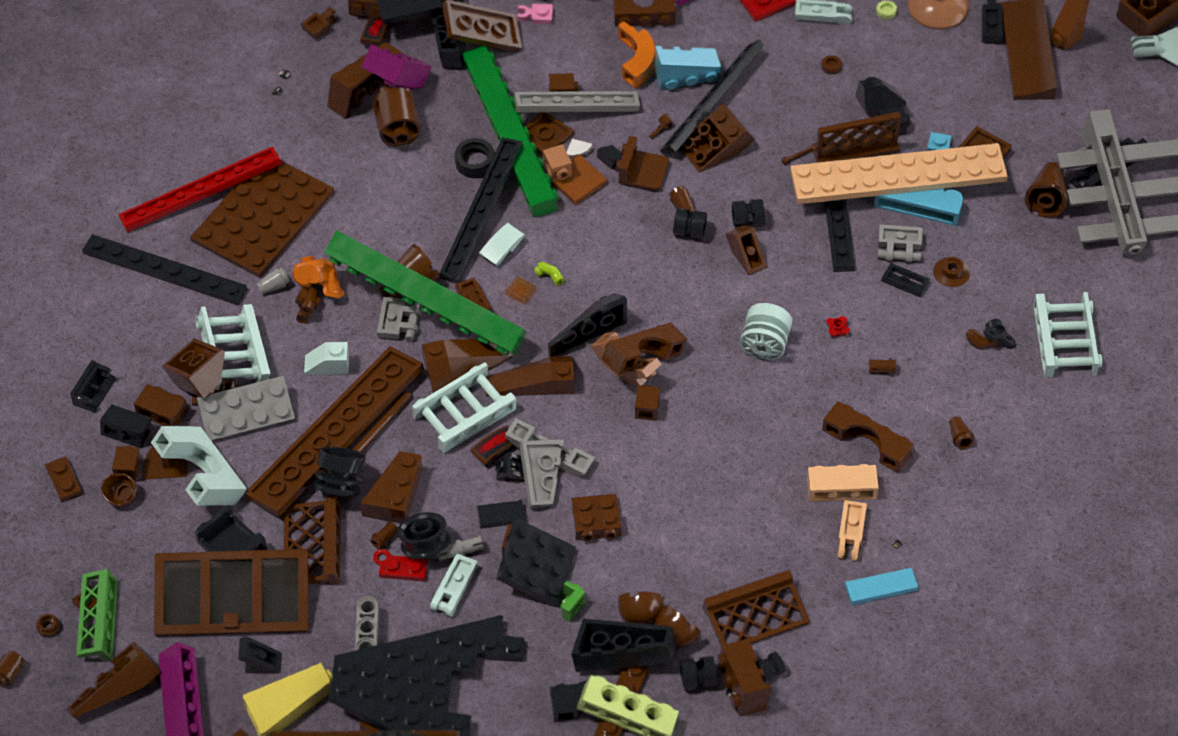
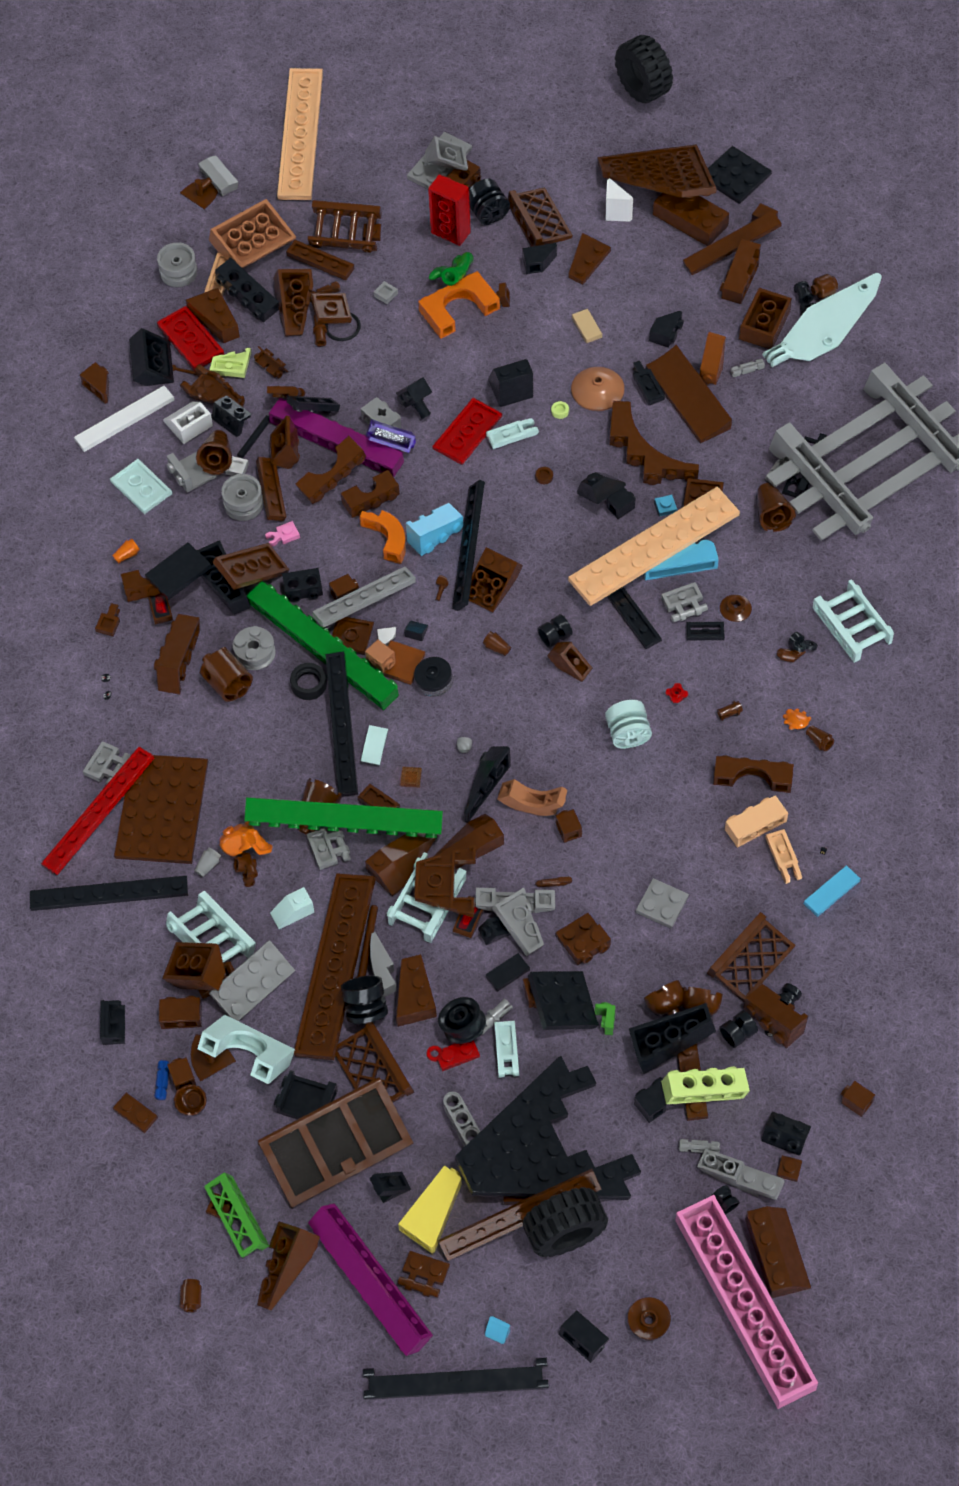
camera: 25 degrees left, 5 degrees up
(47, 619) = (196, 1237): reddish brown plate -> none
(104, 463) = (162, 1080): none -> blue axle
(125, 426) = (160, 1043): black hinge -> none
(233, 146) = (102, 761): none -> light grey plate
(378, 451) = (382, 965): none -> light grey slope
(384, 535) = (425, 1038): reddish brown pin -> none
(396, 69) = (206, 634): magenta wedge -> none
(441, 105) = (254, 638): none -> light grey wheel
(479, 392) = (437, 878): none -> reddish brown wing
(524, 66) = (302, 581): none -> black brick
(551, 270) = (425, 749): lime arm -> none
(591, 282) = (464, 744): none -> light grey hinge
(600, 205) = (433, 676): none -> black piece
(605, 452) = (559, 881): none -> reddish brown piece
(640, 167) = (447, 629): reddish brown bracket -> none
(661, 341) = (534, 794): reddish brown arch -> none
(690, 223) = (514, 659): black wheel -> none
(697, 519) = (662, 903): none -> light grey plate
(785, 160) = (571, 551): reddish brown hinge -> none
(862, 147) = (606, 532): reddish brown fence -> none
(940, 80) = (639, 452): none -> reddish brown arch
(948, 404) = (796, 719): none -> orange piece
(1107, 47) = (747, 367): none -> light grey axle

